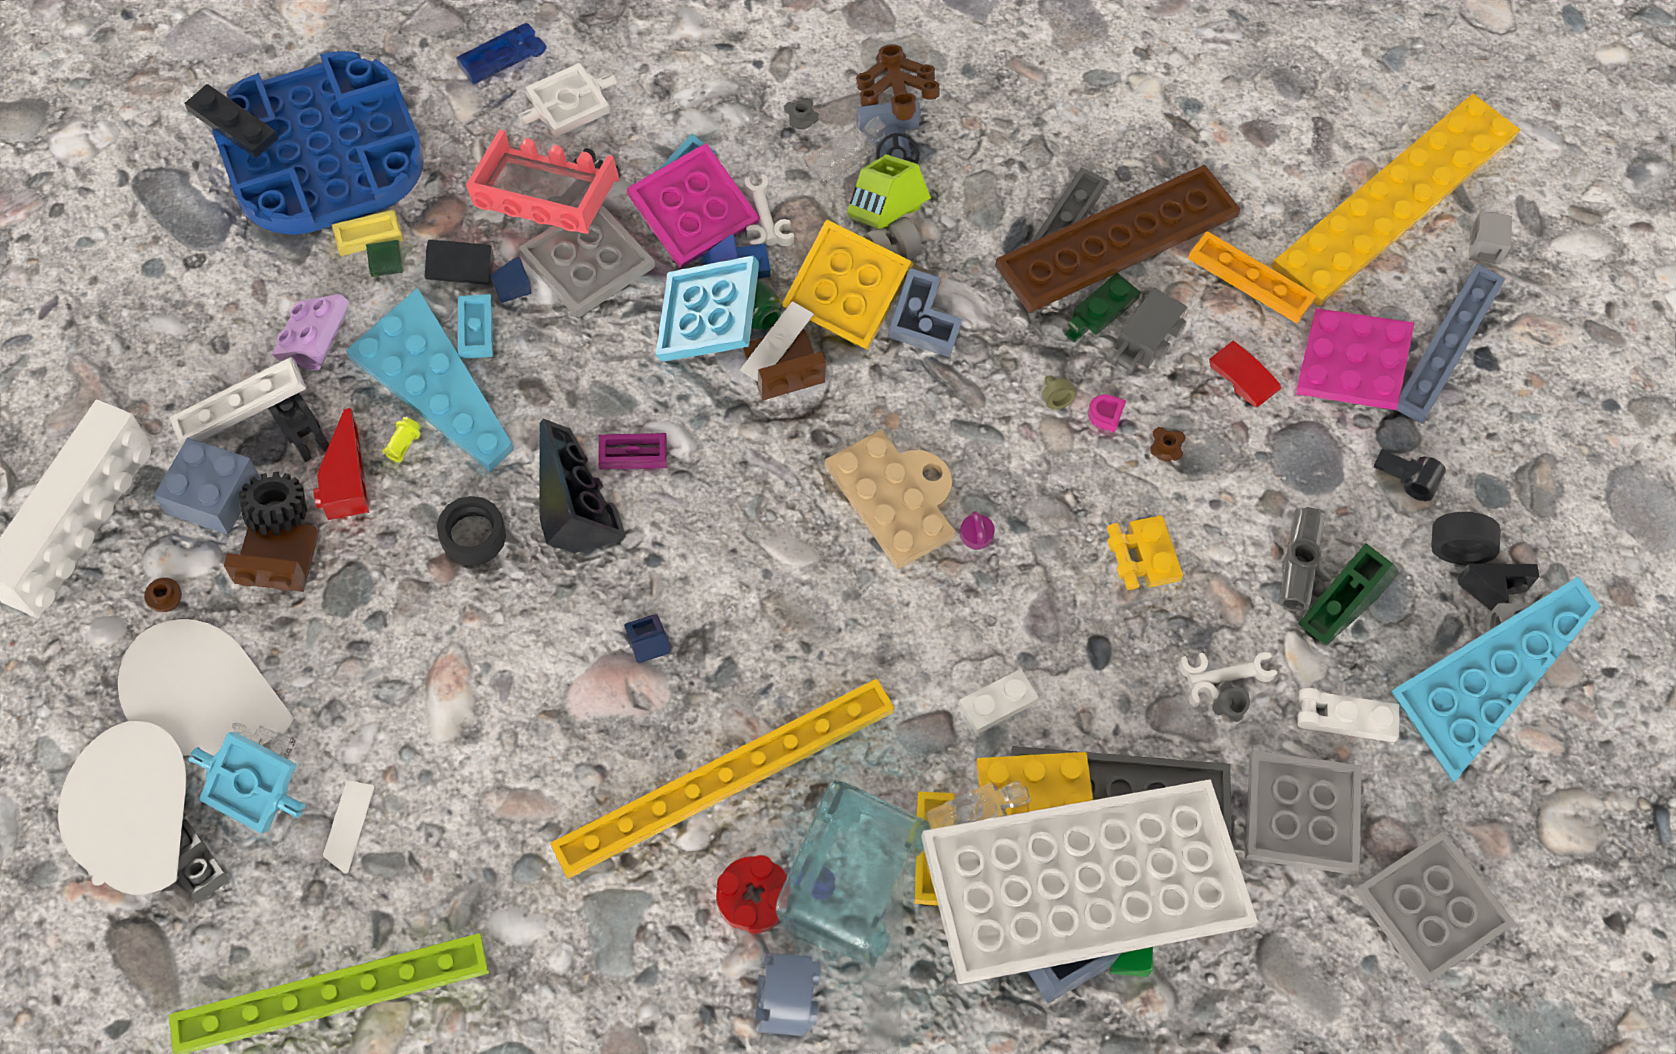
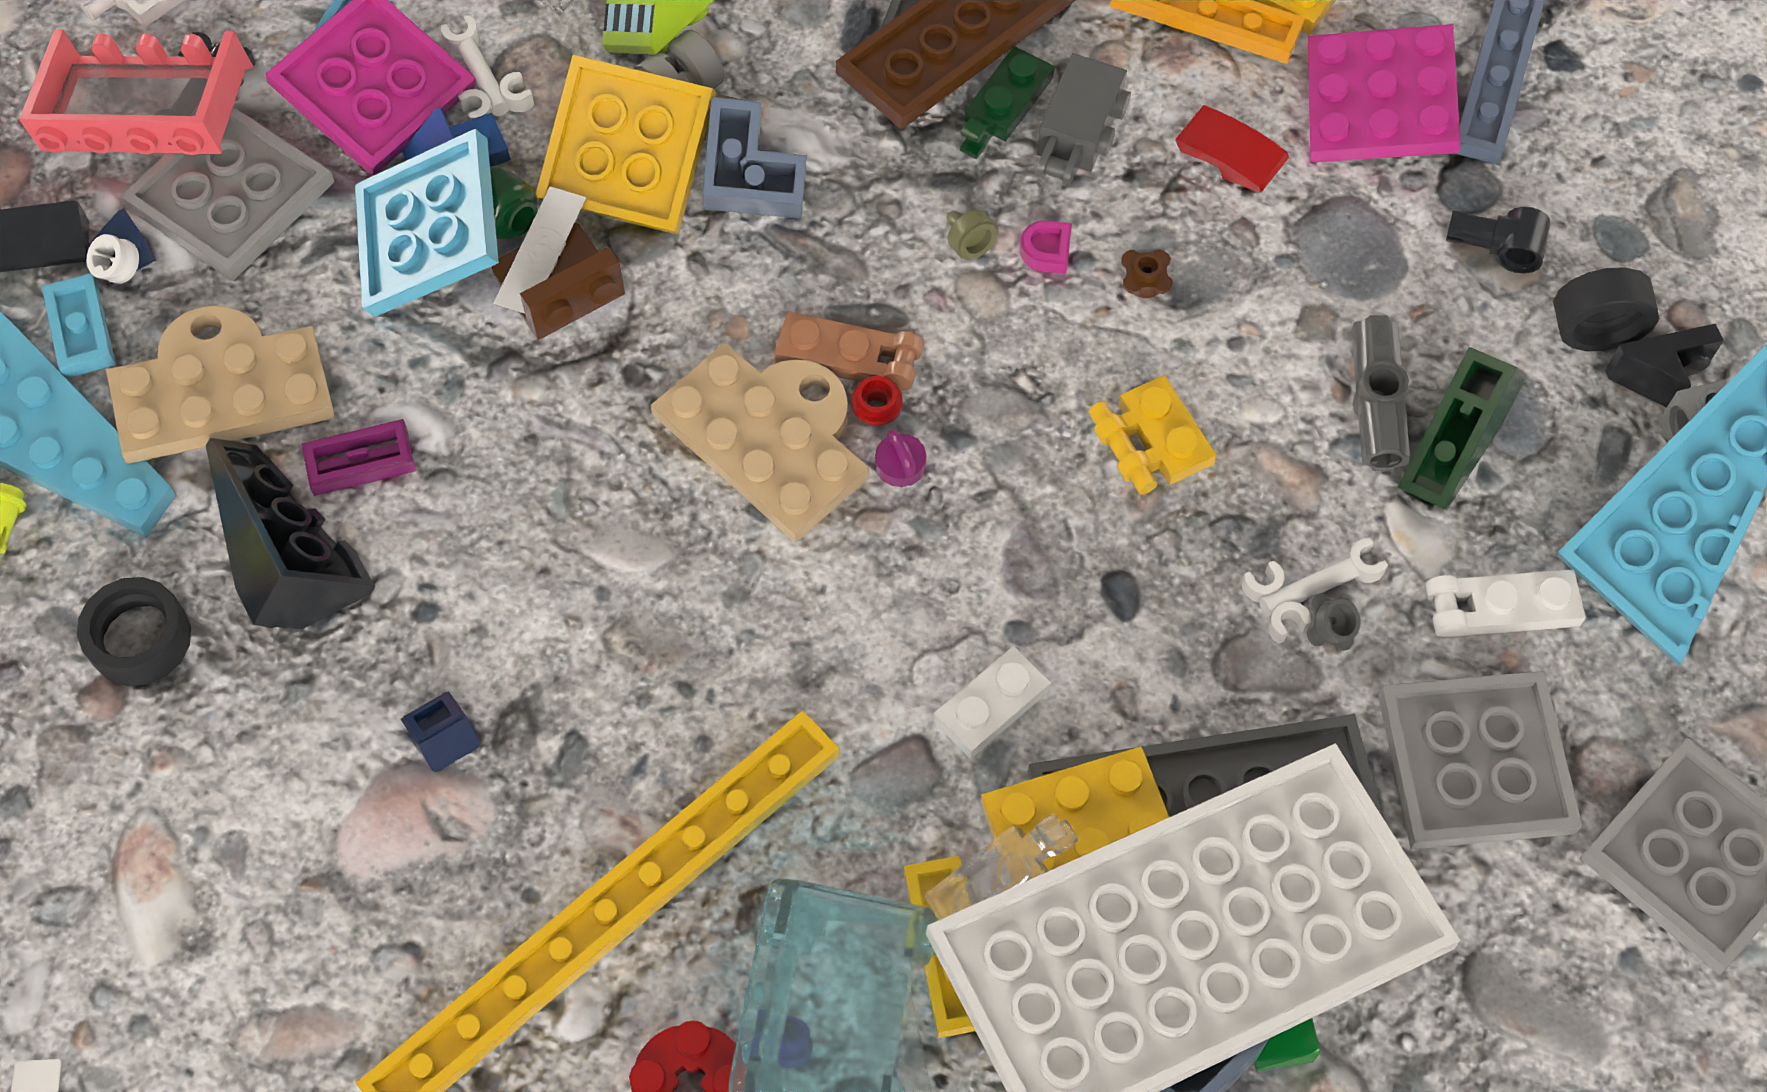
camera: 10 degrees left, 0 degrees up
(498, 284) = (101, 254): none -> white bush
(554, 386) = (217, 385): none -> tan plate
(961, 452) = (849, 349): none -> nougat plate
(974, 482) = (877, 389): none -> red plate

